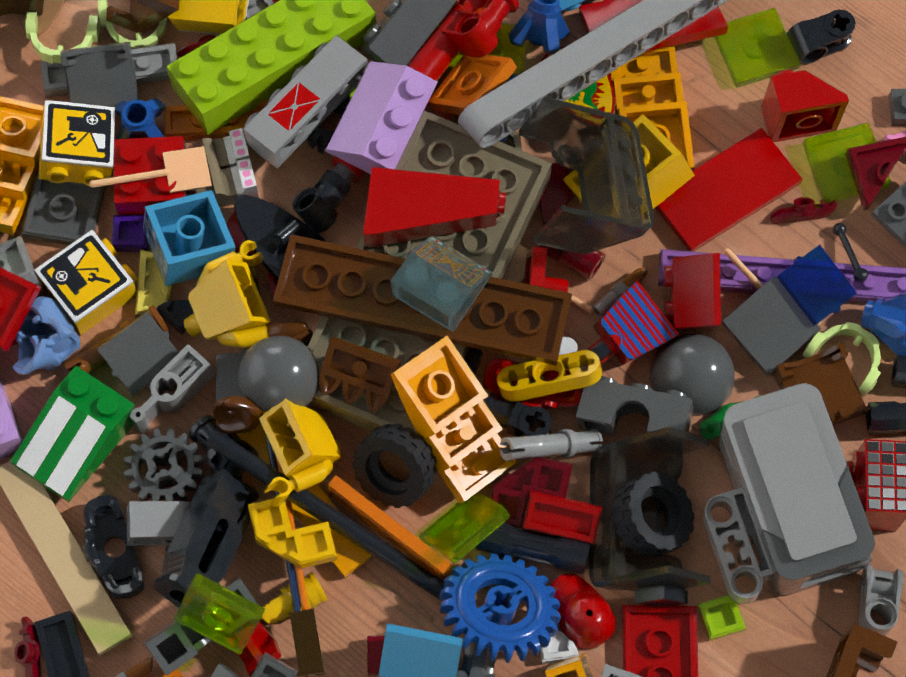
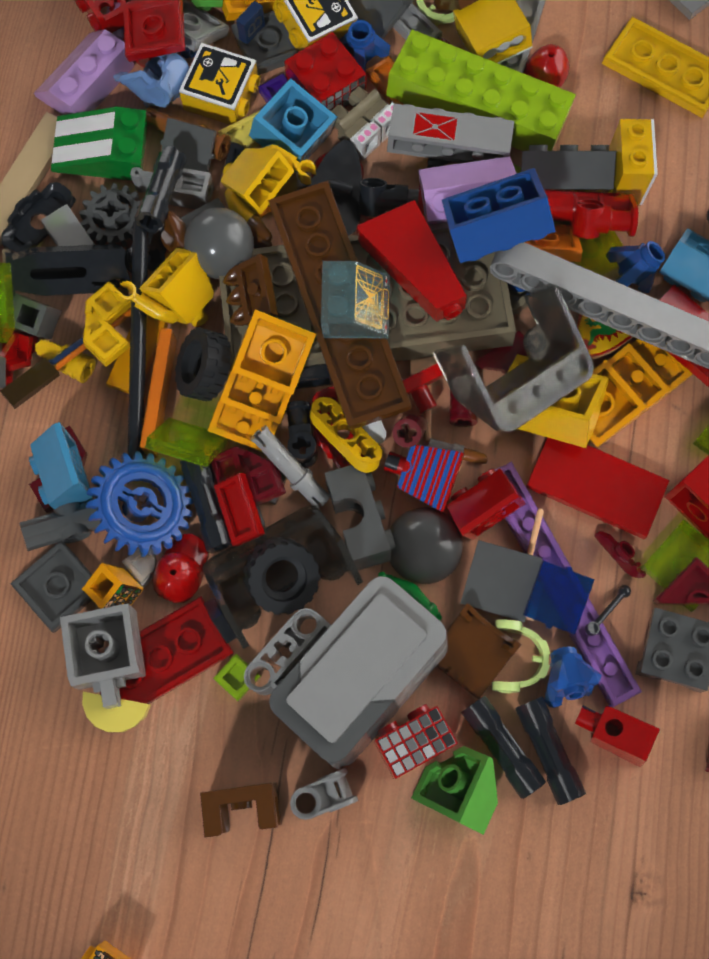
camera: 60 degrees right, 5 degrees up
(41, 210) = (250, 22): none -> dark blue tile
(185, 166) = (341, 86): light nougat piece -> none
(205, 408) = (154, 205): none -> black axle
(443, 104) = (498, 215): none -> blue brick
(595, 314) = (401, 430): none -> dark red hinge

